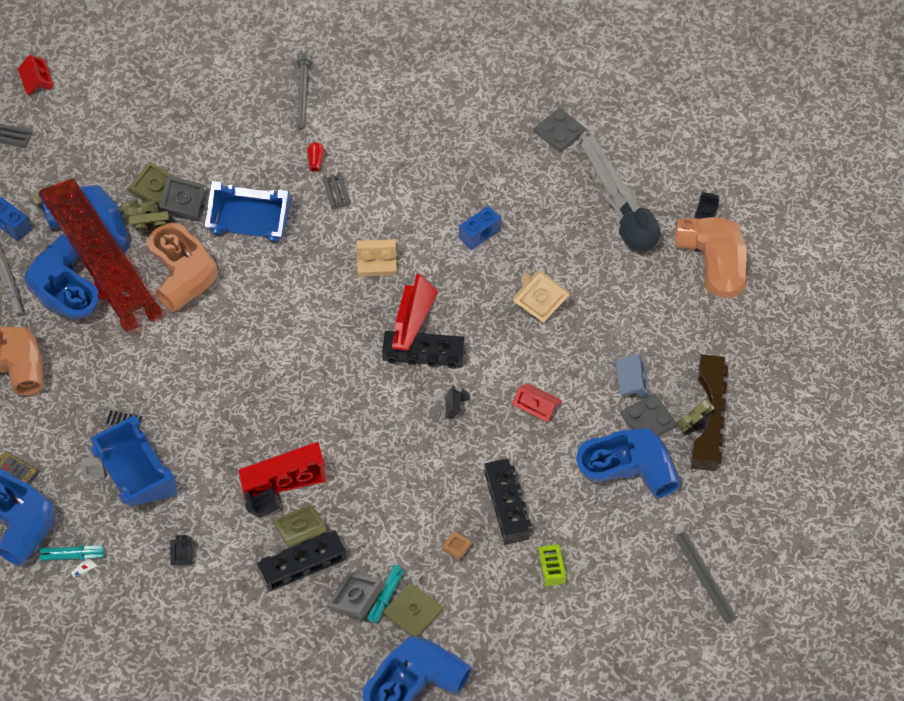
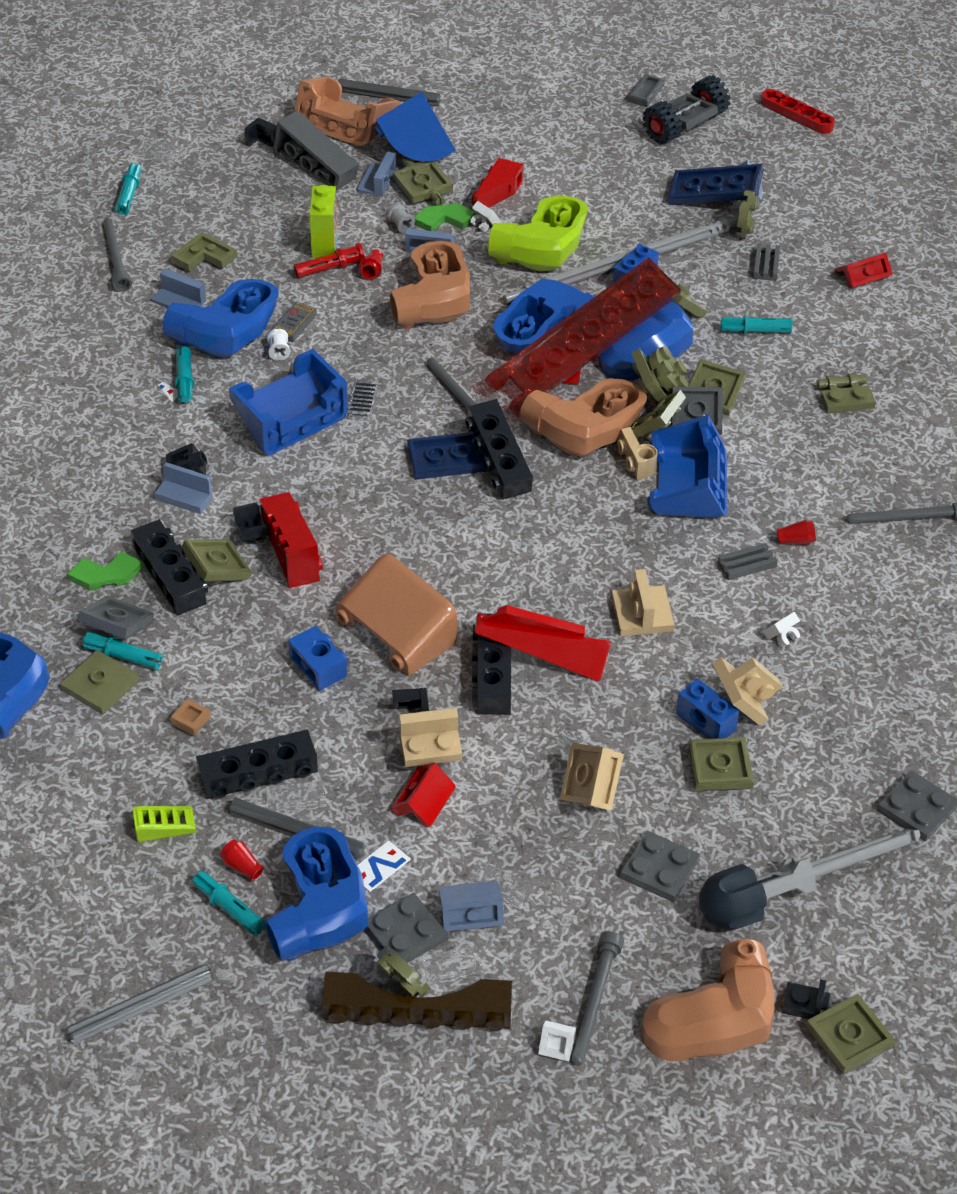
camera: 85 degrees right, 10 degrees down
(49, 479) = (278, 344): none -> white bush
(85, 156) = (765, 325): none -> teal axle
(164, 338) = (450, 382): none -> dark grey piece
(177, 106) = (846, 399): none -> olive plate
(192, 215) = (660, 416): none -> olive plate
(197, 358) = (444, 456): none -> dark blue tile
(214, 551) = (184, 488): none -> sand blue panel
(218, 321) = (507, 464): none -> black brick
(223, 241) = (639, 458): none -> tan plate
(300, 617) = (92, 575): none -> bright green tile
(372, 402) = (401, 613): none -> nougat windscreen
(402, 469) = (318, 658): none -> blue brick
(405, 177) = (782, 628): none -> white tile
(466, 193) = (748, 686): none -> tan bracket
(500, 388) = (429, 737): none -> tan bracket
(521, 228) = (721, 764): none -> olive plate
(558, 484) = (282, 822): none -> dark grey axle
(588, 428) = (382, 865): none -> white sticker
(588, 515) = (239, 858): none -> red cone
(601, 272) = (660, 866): none -> dark grey plate
(619, 527) = (234, 907): none -> teal axle
(668, 305) = (609, 947): none -> dark grey piece
(733, 189) = (850, 1033): none -> olive plate
(737, 338) = (557, 1041): none -> white tile

